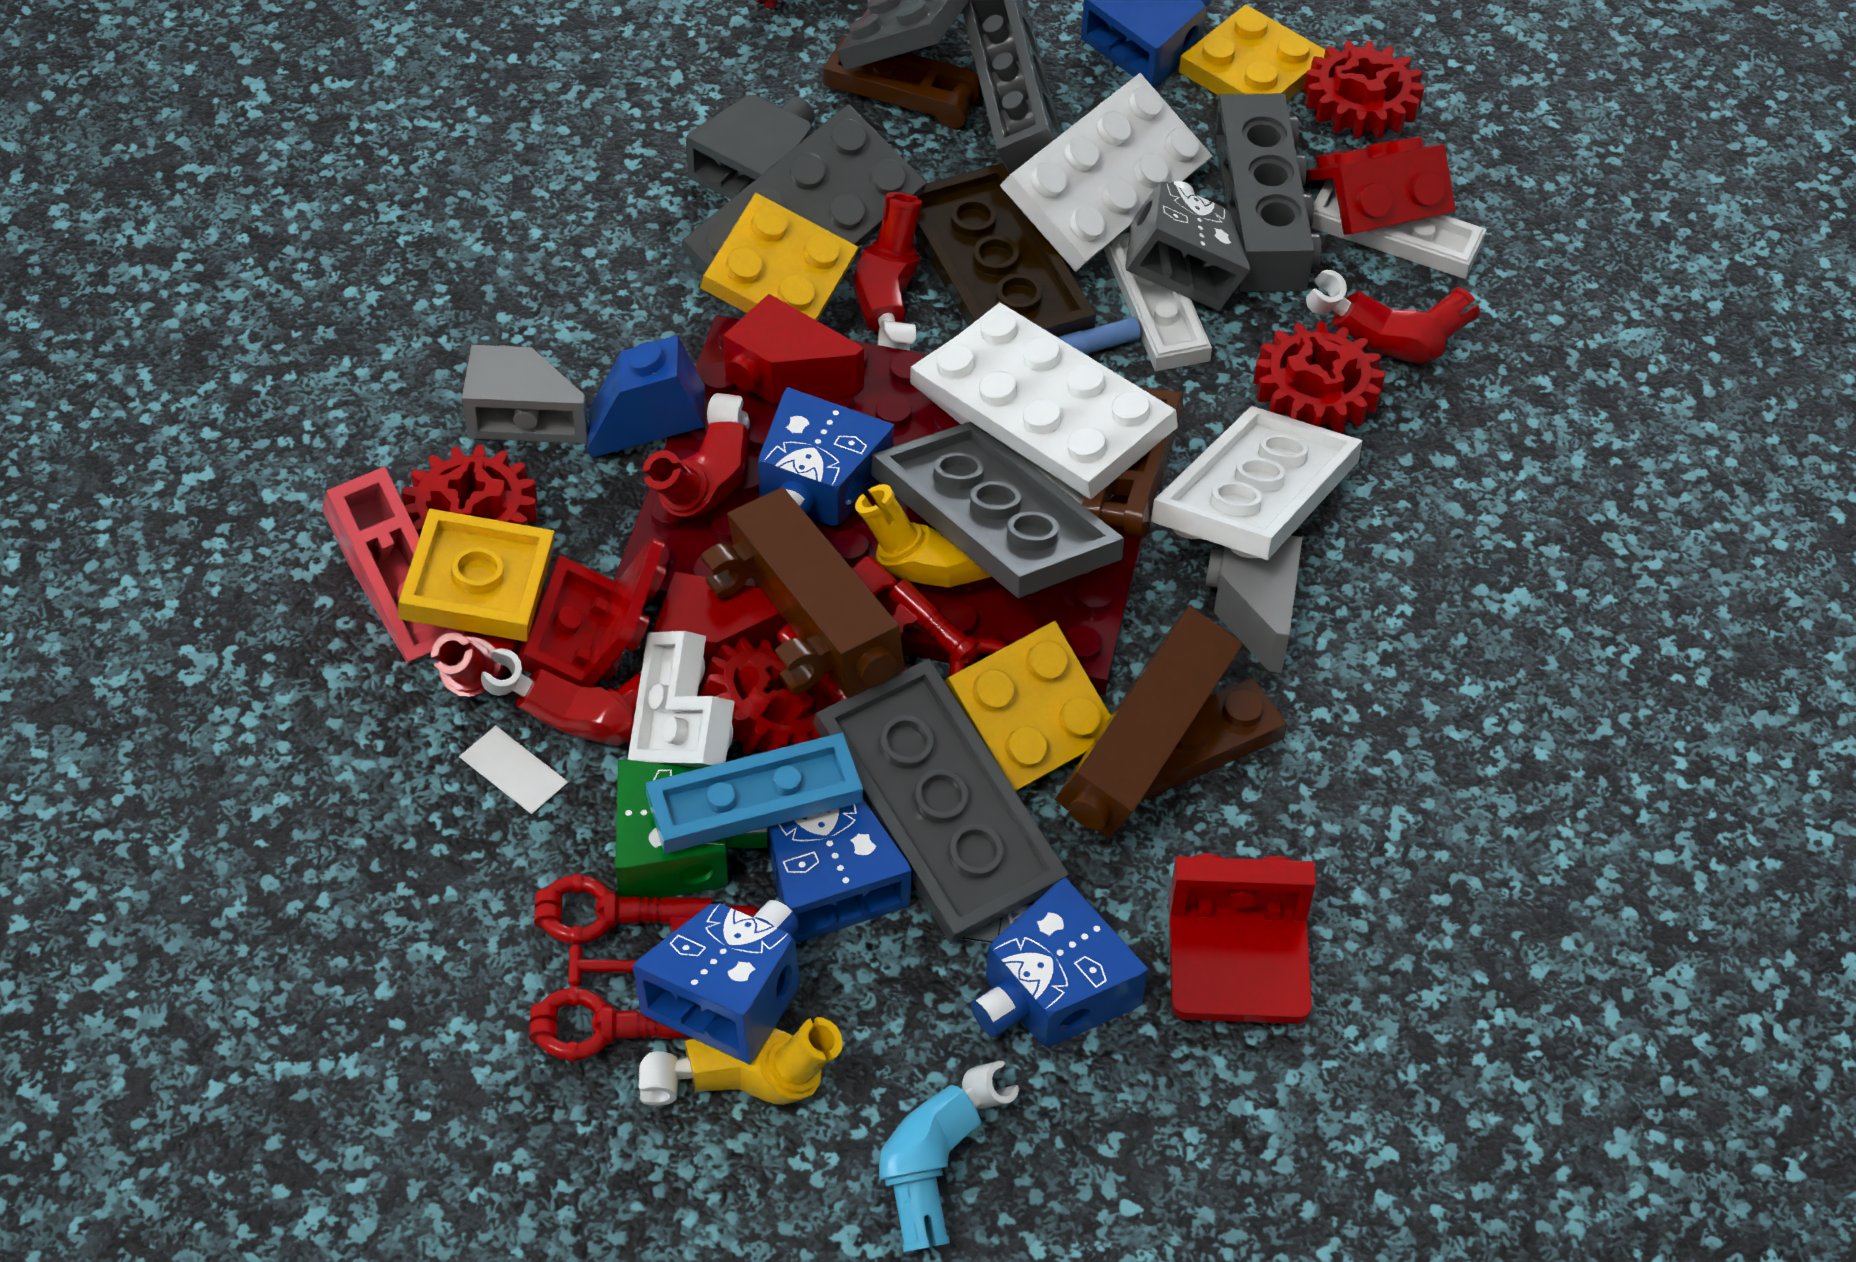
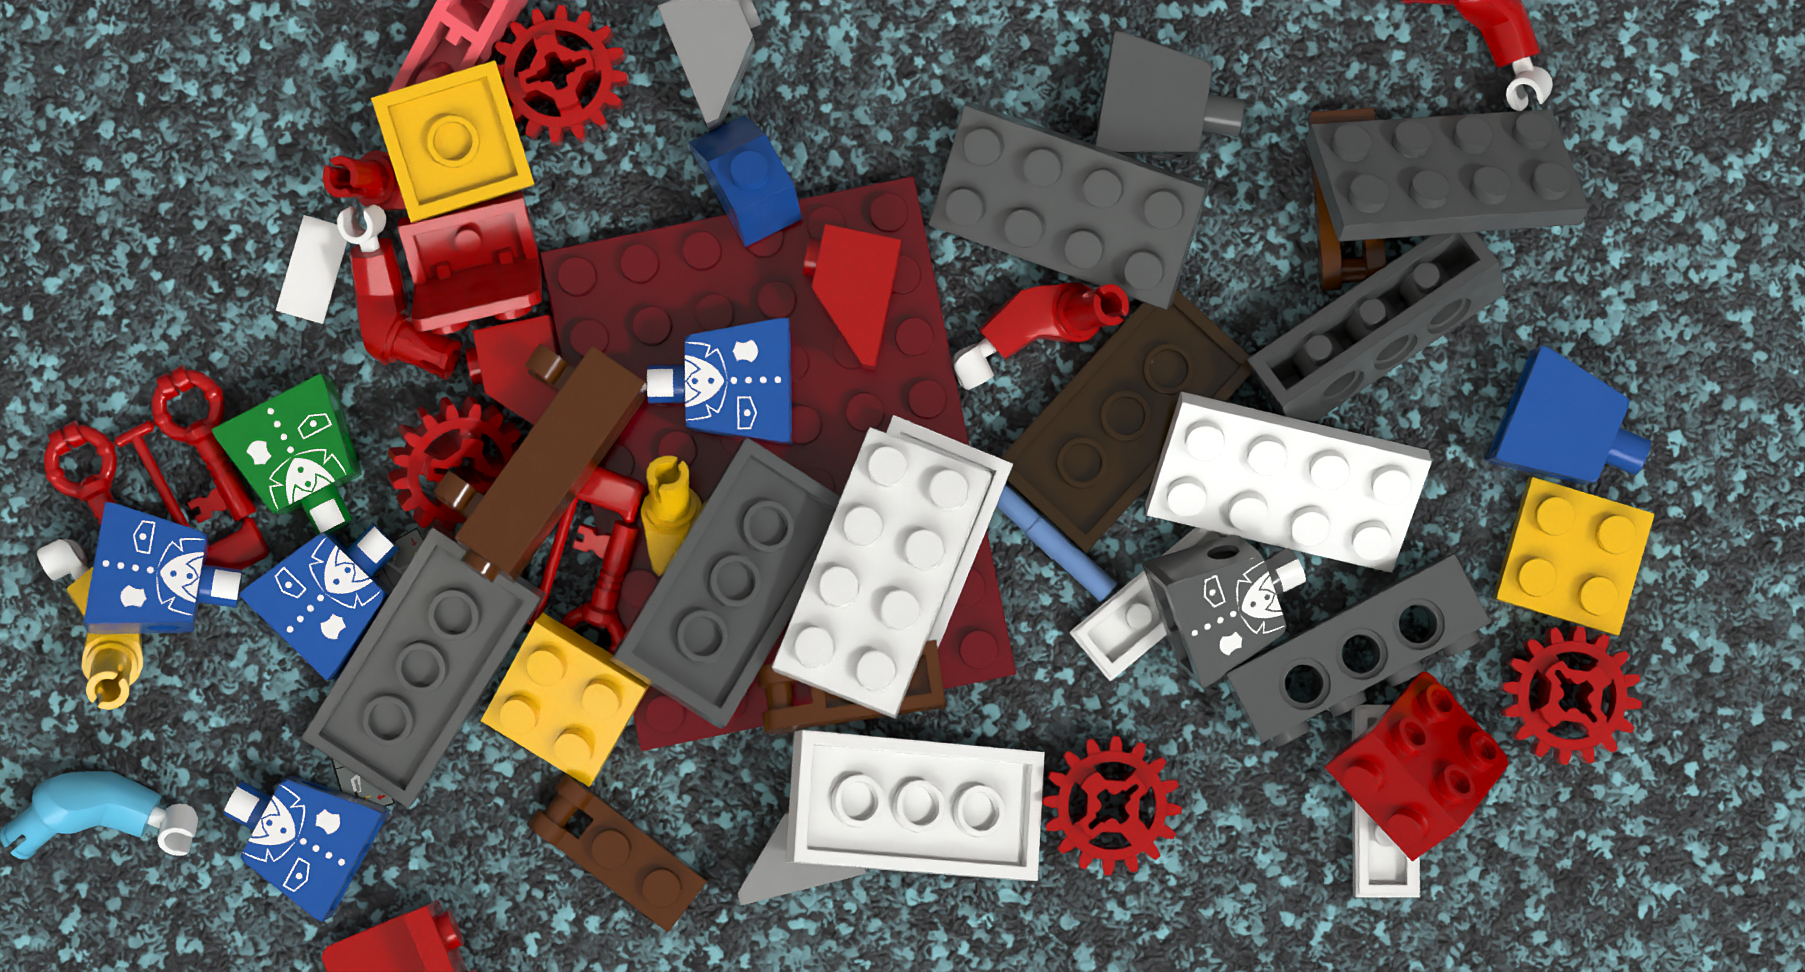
camera: 70 degrees right, 35 degrees up
(669, 717) = (377, 396): white plate -> none
(708, 477) = (666, 287): red arm -> none
(753, 792) = (320, 515): dark azure plate -> none
(778, 256) = (966, 222): yellow plate -> none
(1148, 723) = (567, 821): reddish brown brick -> none
(1393, 333) = (1214, 859): red arm -> none

